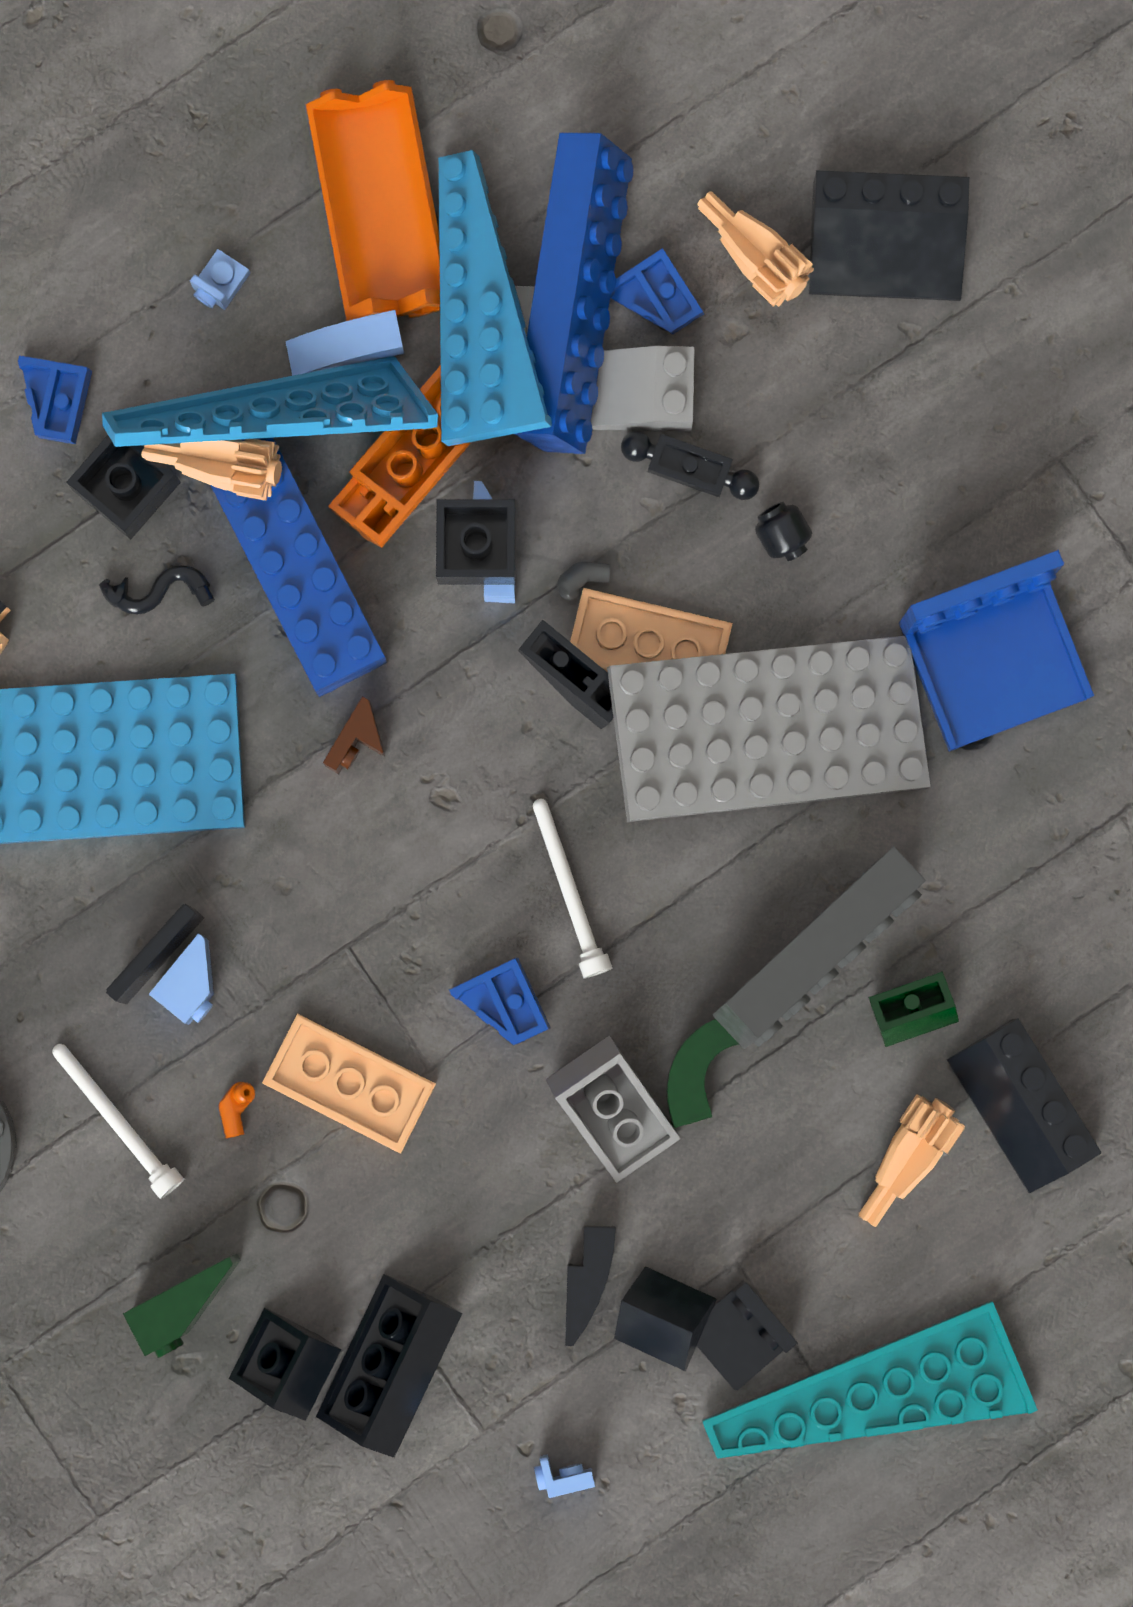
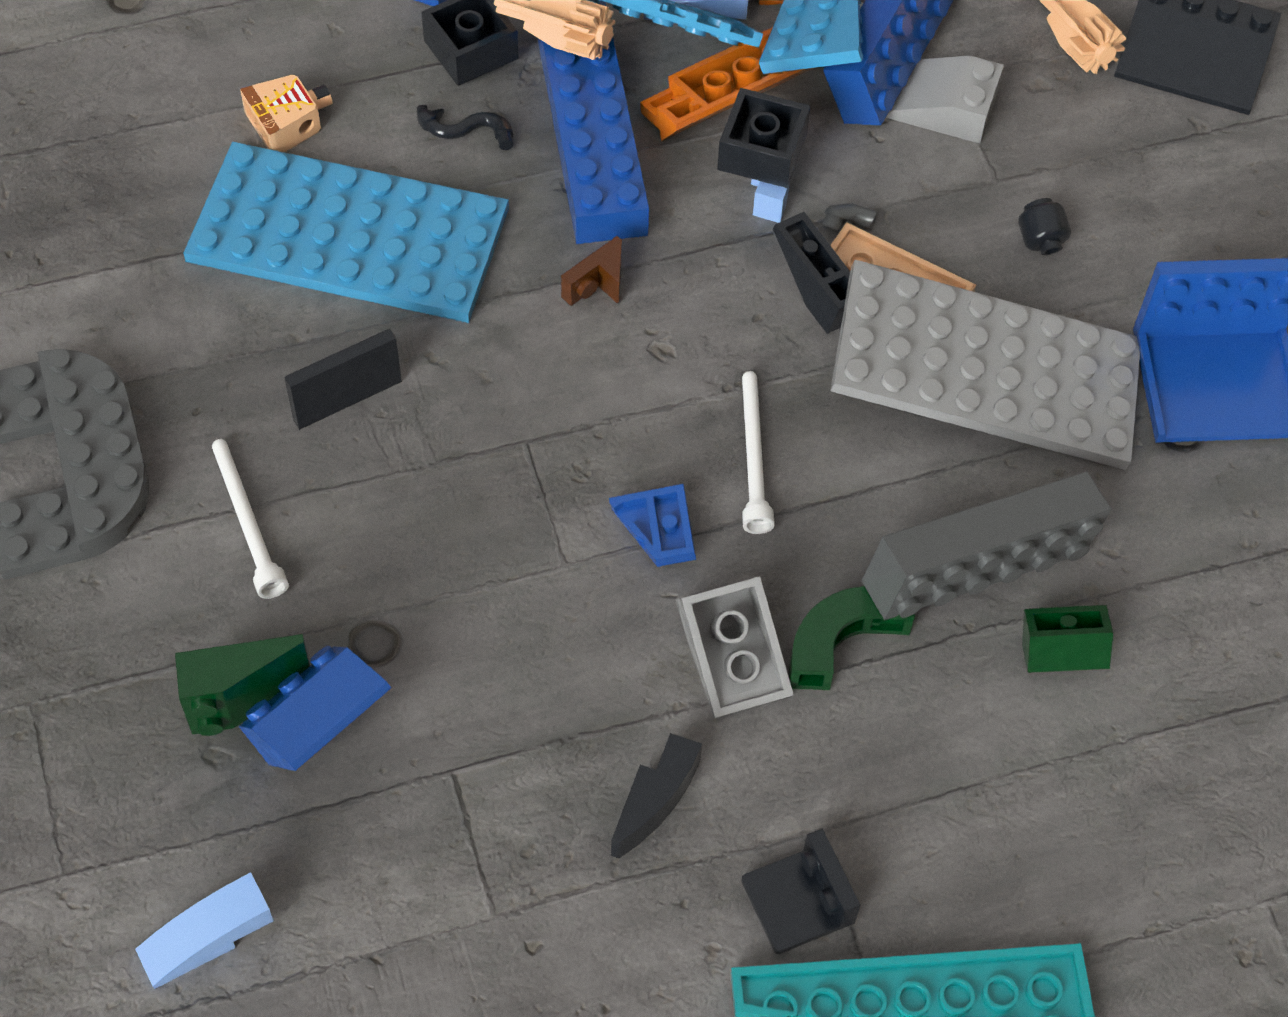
camera: 15 degrees right, 25 degrees down
(188, 983) = (363, 418): light blue slope -> none
(233, 1105) = (363, 537): orange arm -> none
(244, 1535) = (204, 931): none -> light blue slope
(261, 1309) = (312, 707): none -> blue slope
(284, 1364) = (321, 785): black slope -> none
(349, 1083) = (482, 553): light nougat tile -> none
(388, 1366) = (423, 813): black slope -> none
(571, 1478) = (566, 986): light blue bracket -> none
(657, 293) = (980, 34): blue wing -> none
(663, 1317) = (720, 854): black slope -> none
(690, 465) = (973, 160): black plate -> none
(912, 1153) = (1030, 772): light nougat piece -> none
(1023, 1106) = (1160, 765): black slope -> none

